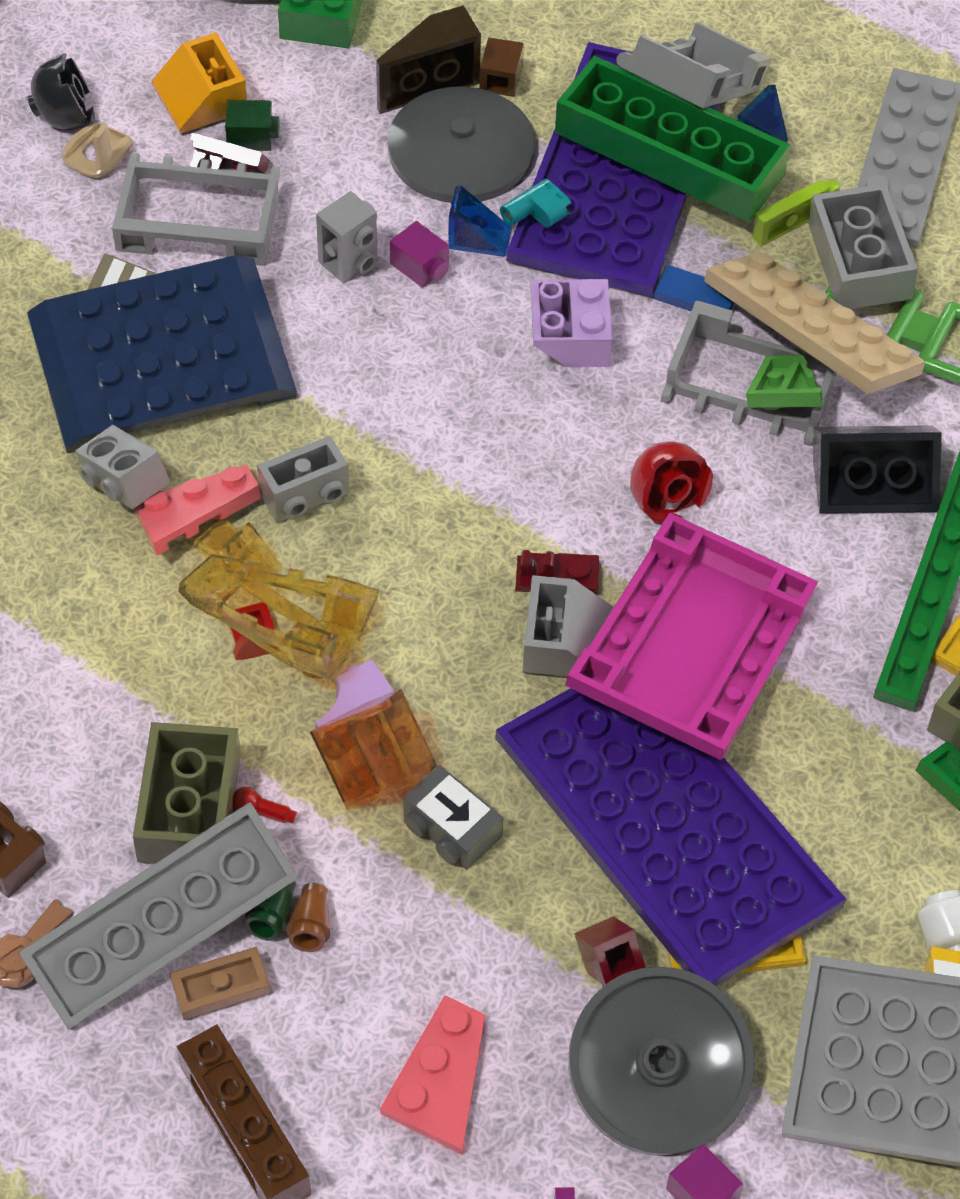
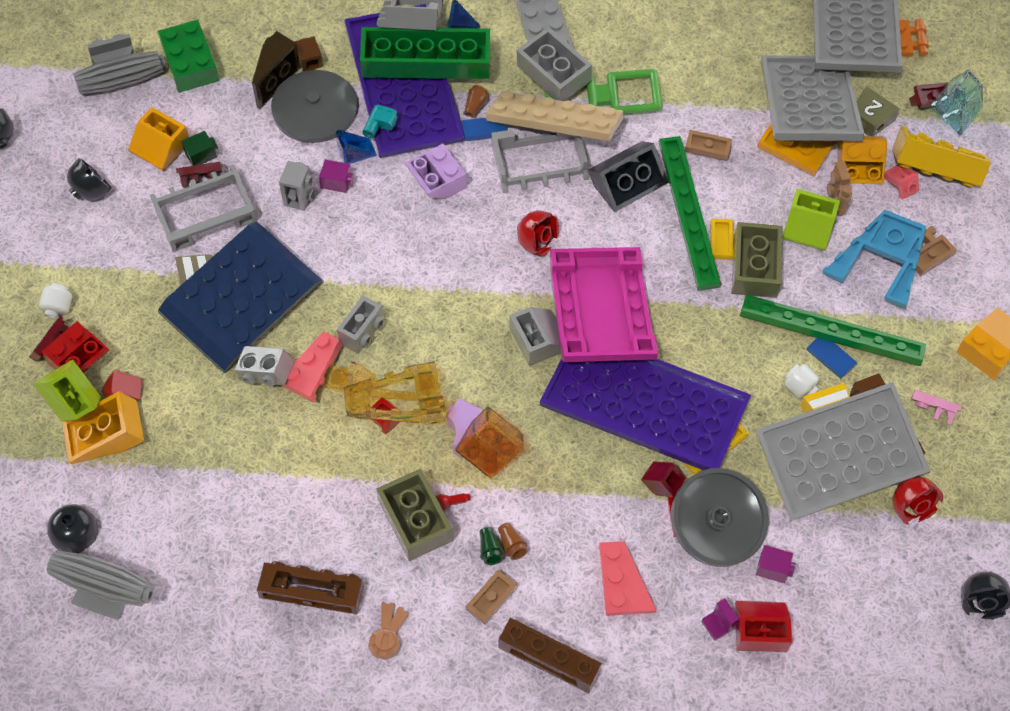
camera: 30 degrees left, 5 degrees up
(104, 139) = (134, 195): tan piece -> none
(158, 915) = (445, 581): light grey plate -> none
(452, 818) = (546, 455): dark grey brick -> none
(562, 565) = (514, 303): dark red plate -> none
(709, 246) = (475, 100): none -> dark orange cone
(784, 383) = (561, 154): bright green wing -> none
(789, 212) = (505, 60): lime hinge -> none

